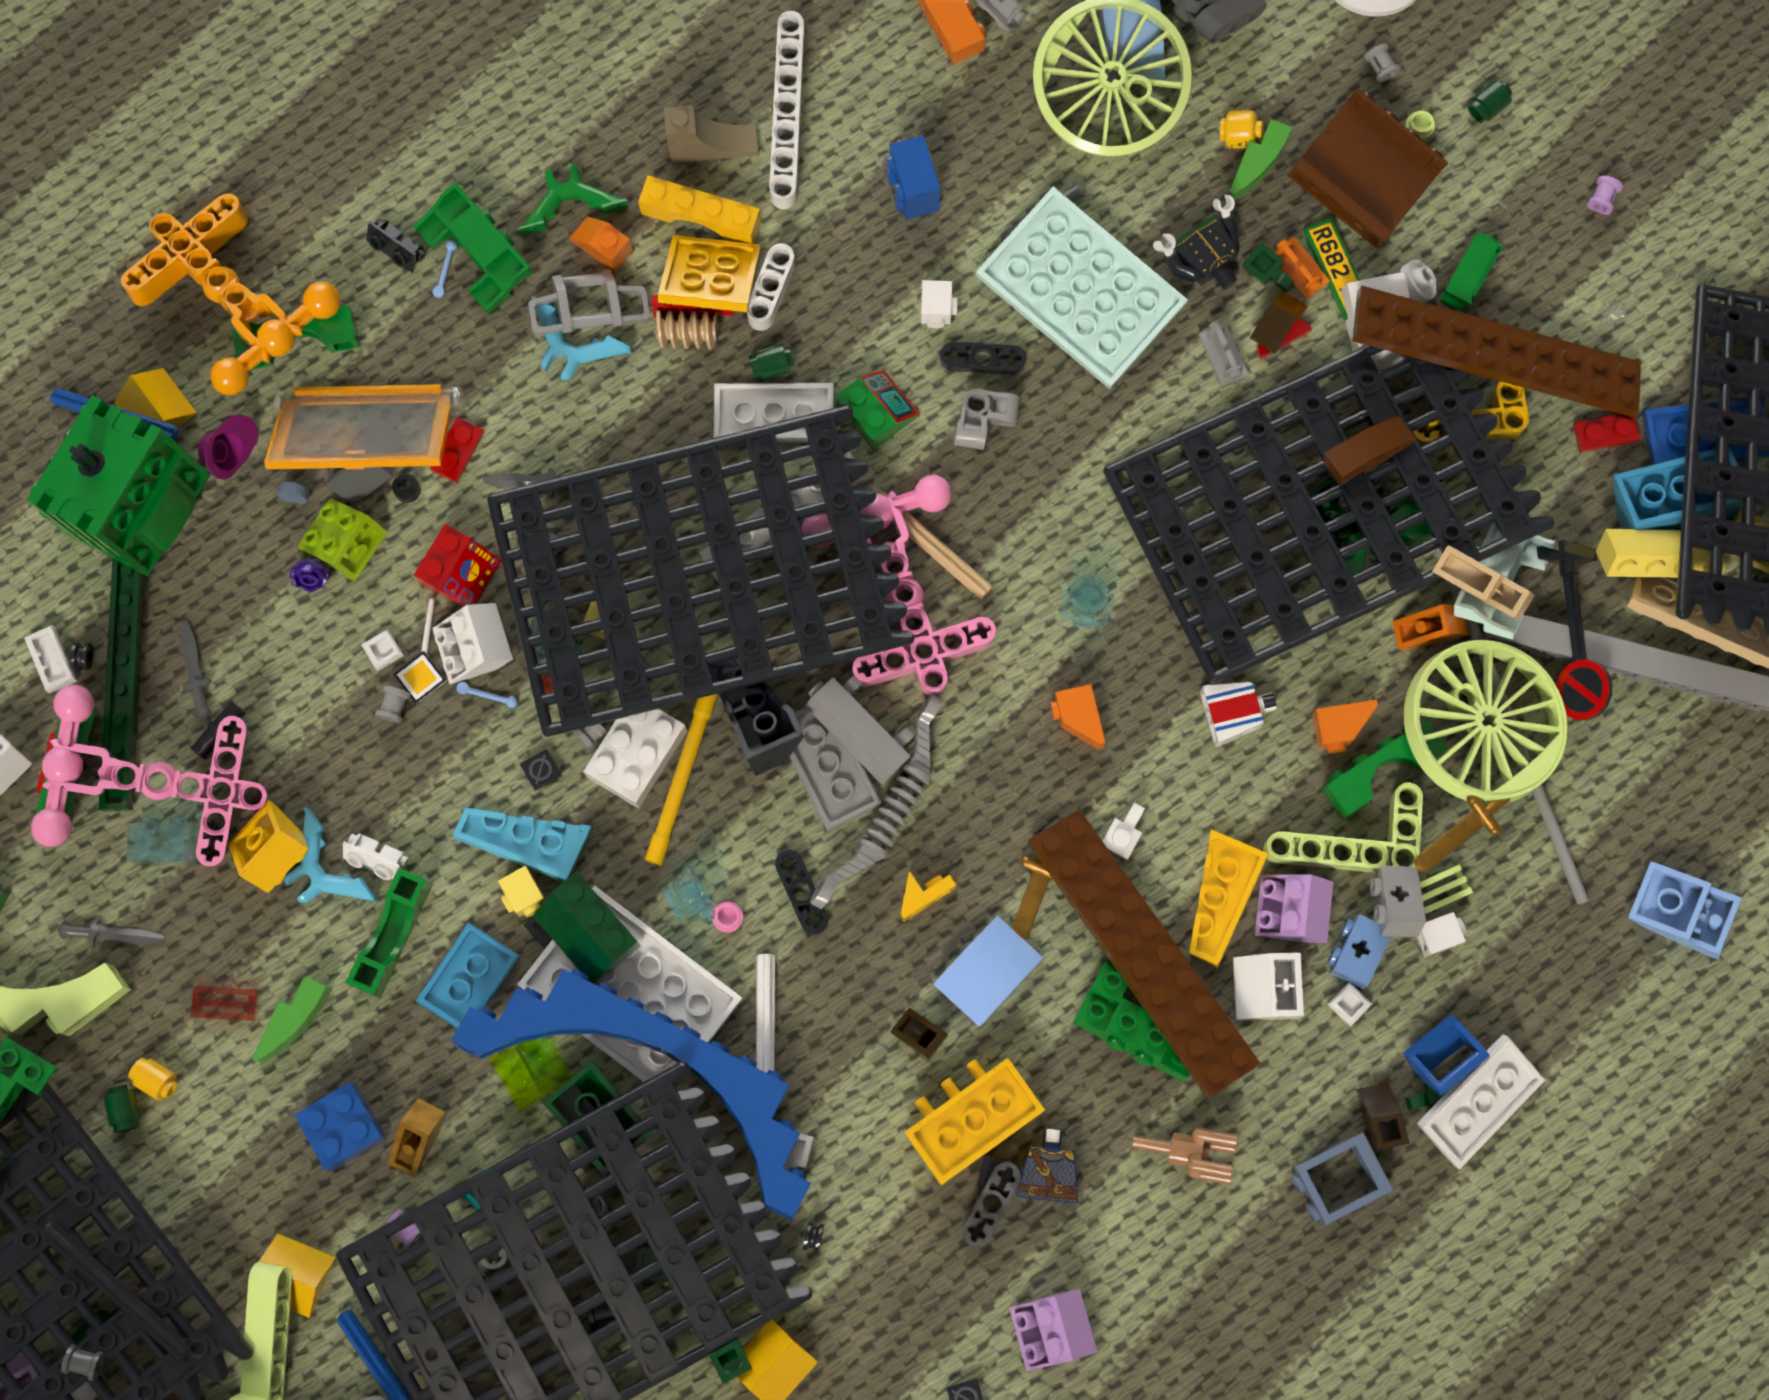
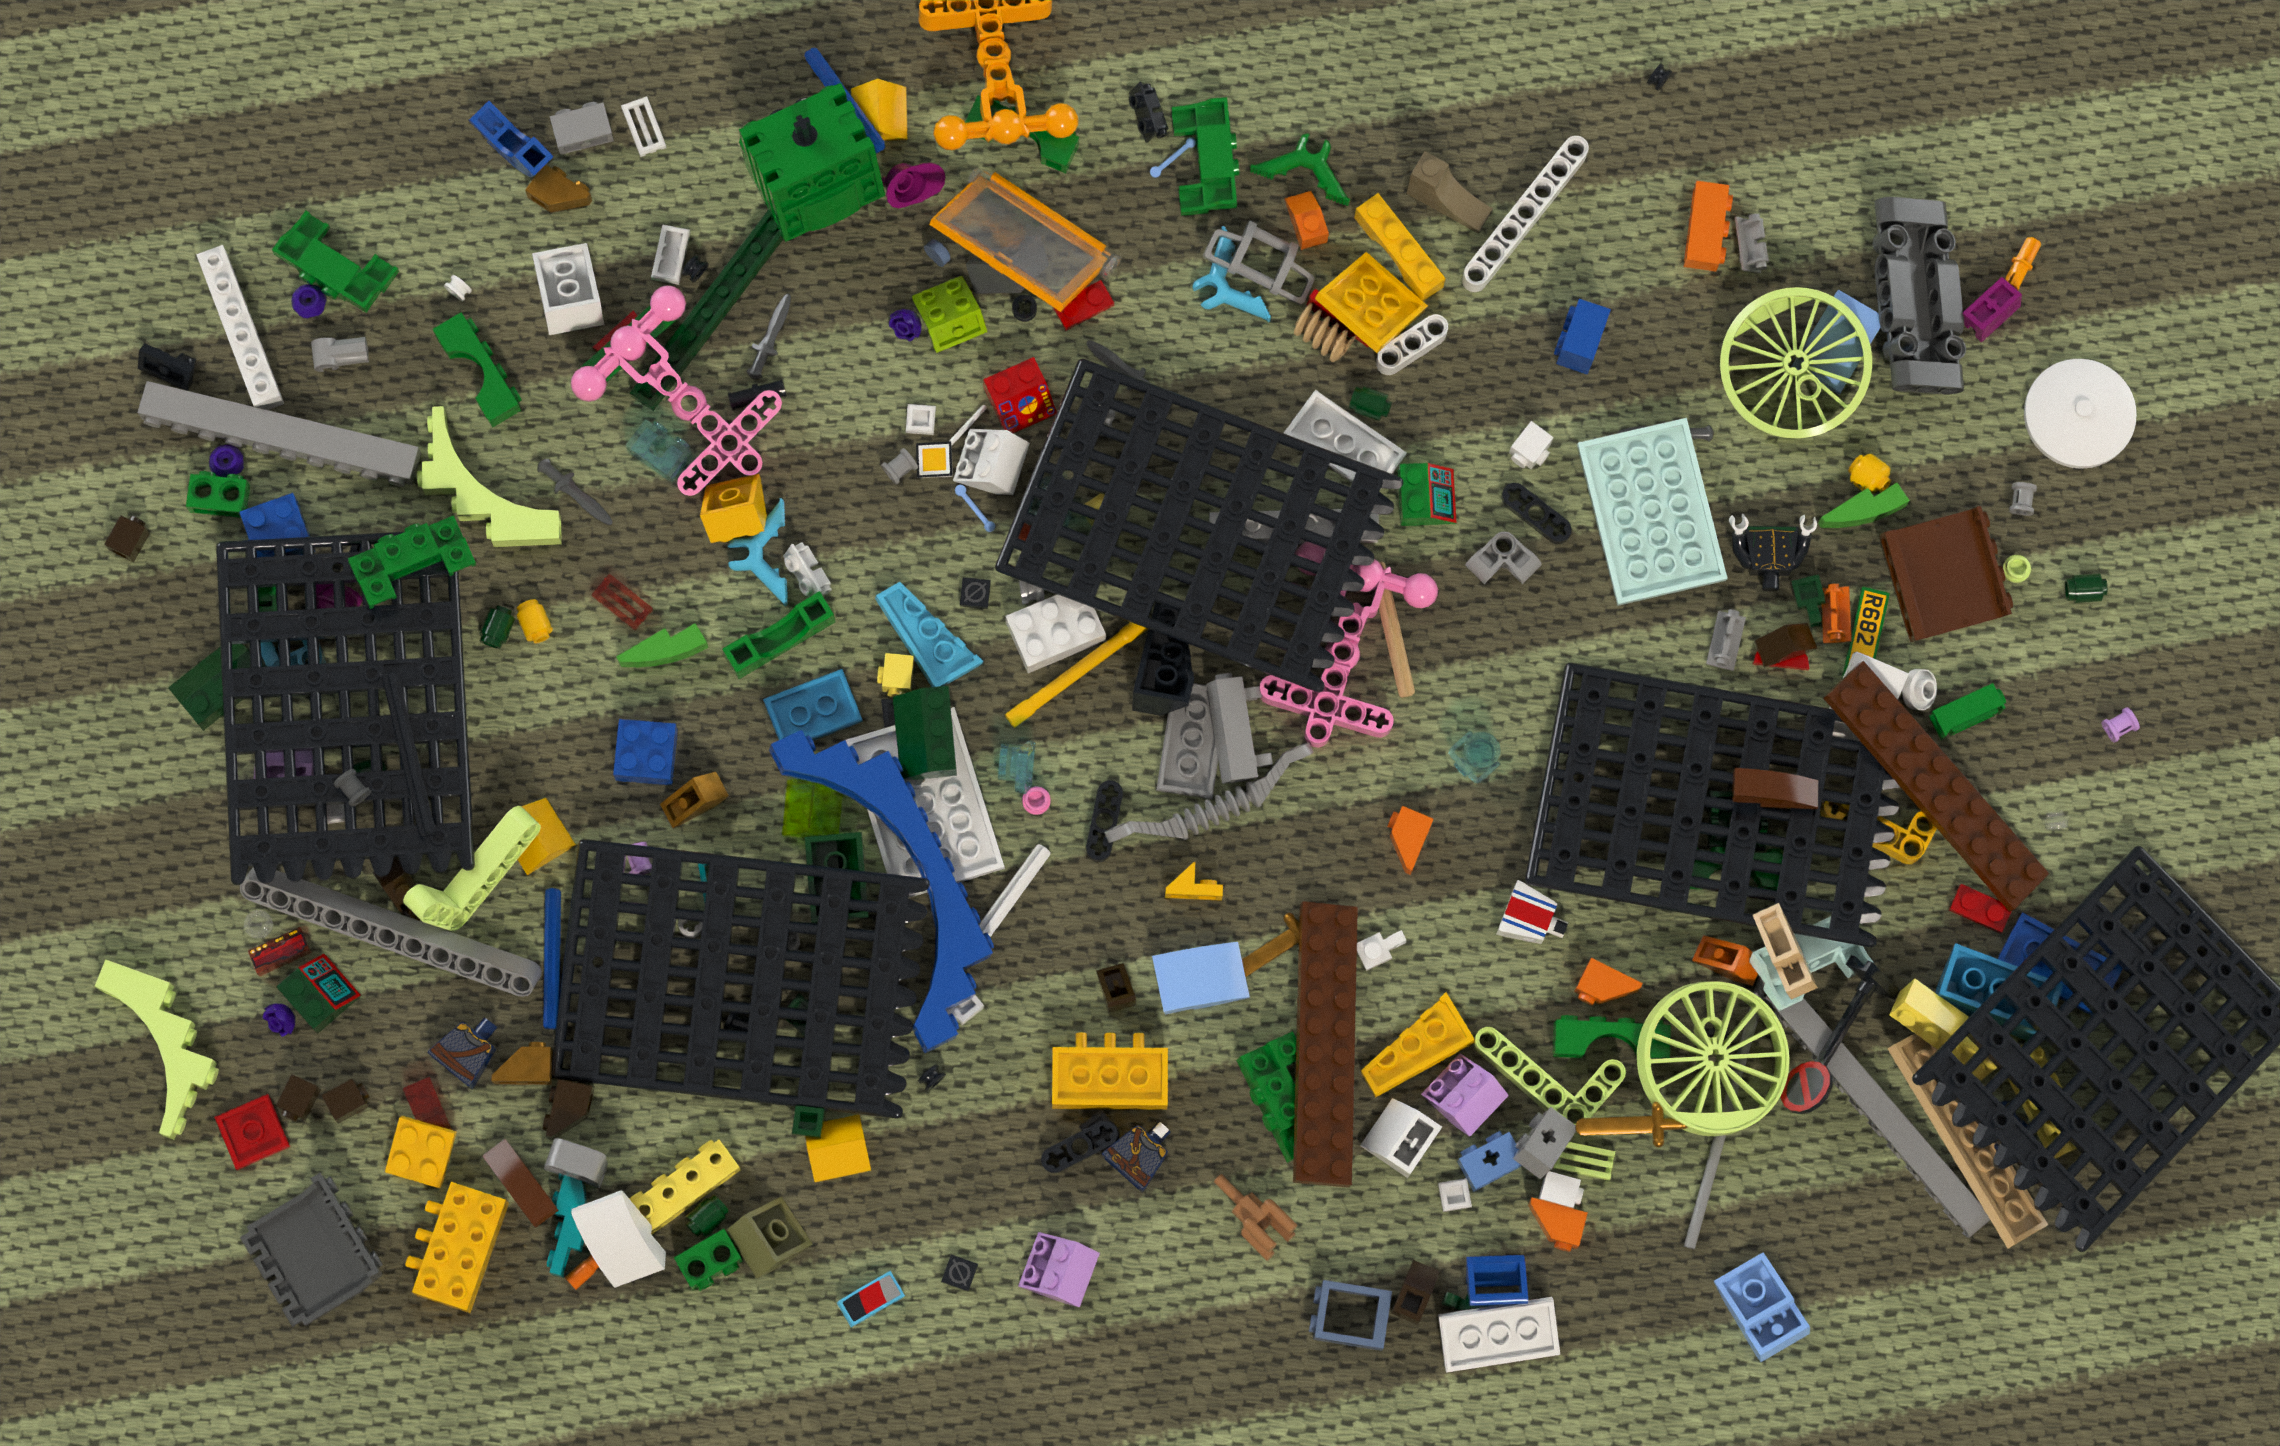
camera: 30 degrees right, 0 degrees up
(1460, 963) = (1559, 1223): none -> orange slope

